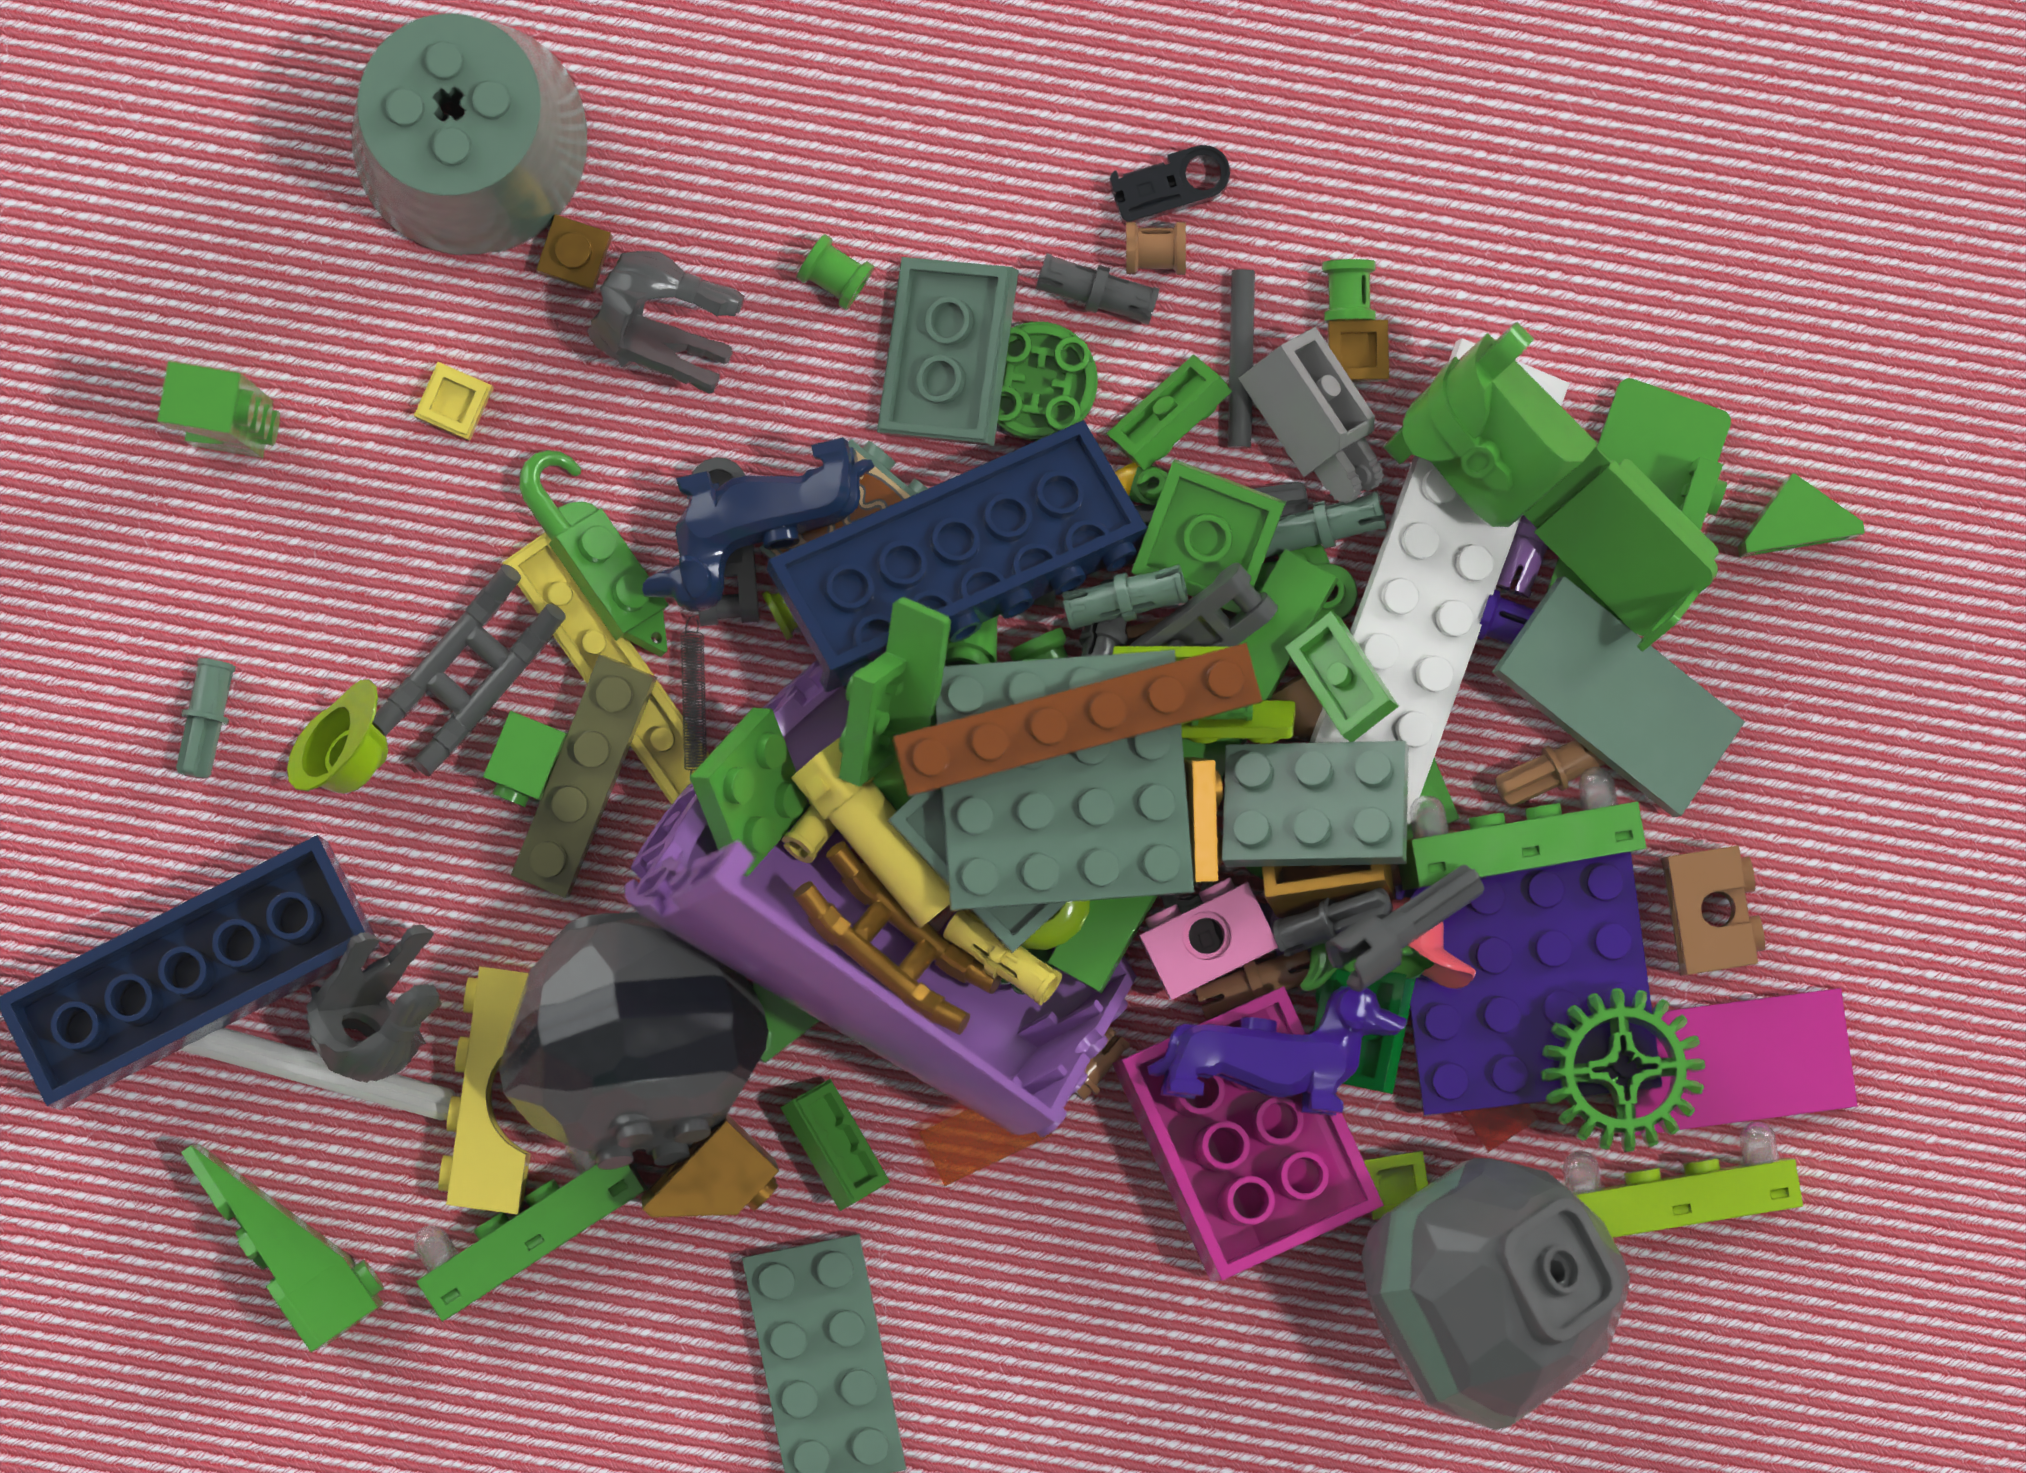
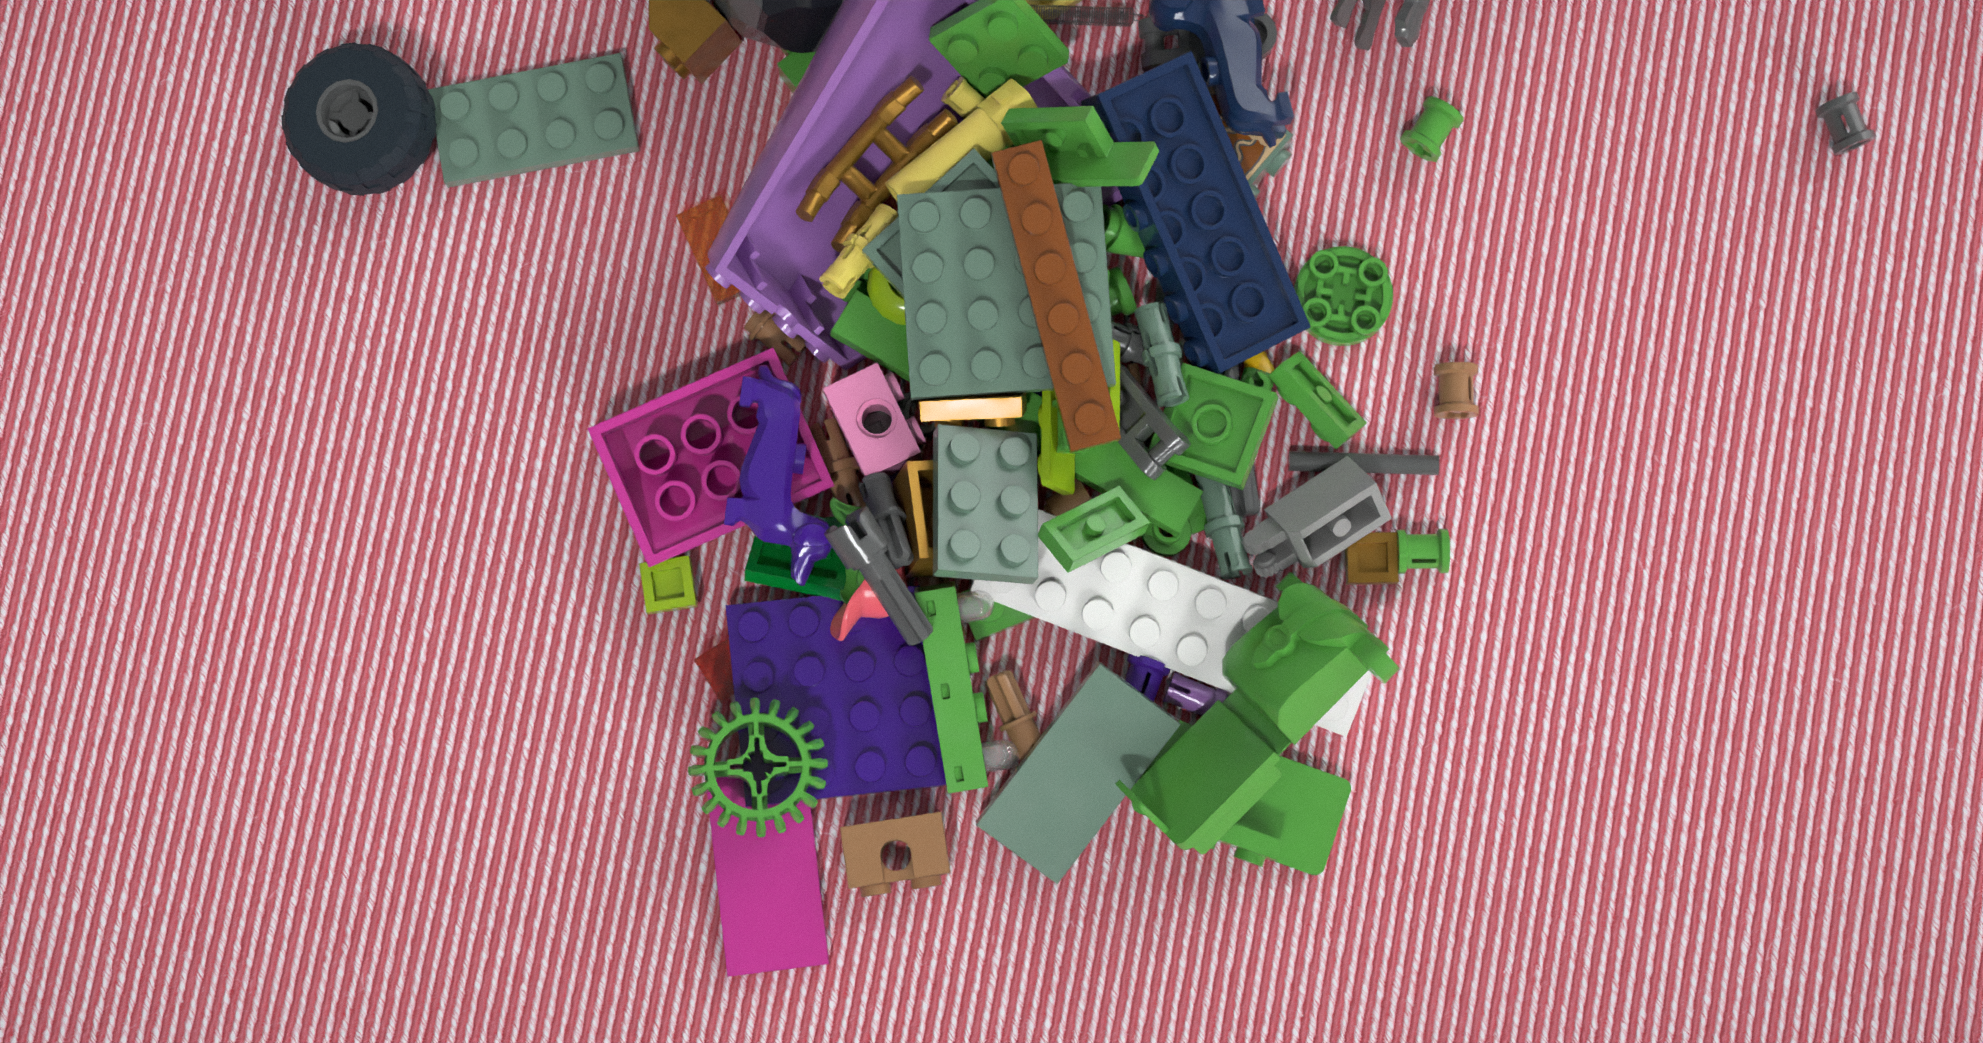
camera: 90 degrees right, 5 degrees down
(835, 1144) = (711, 126): bright green plate -> none
(947, 351) = (1367, 219): sand green tile -> none
(1097, 289) = (1421, 342): dark grey pin -> none
(1164, 187) = (1507, 400): black piece -> none
(1494, 1289) = (570, 649): dark grey rock -> none
(1695, 1197) = (649, 819): lime piece -> none
(1797, 519) = (1230, 931): bright green slope -> none

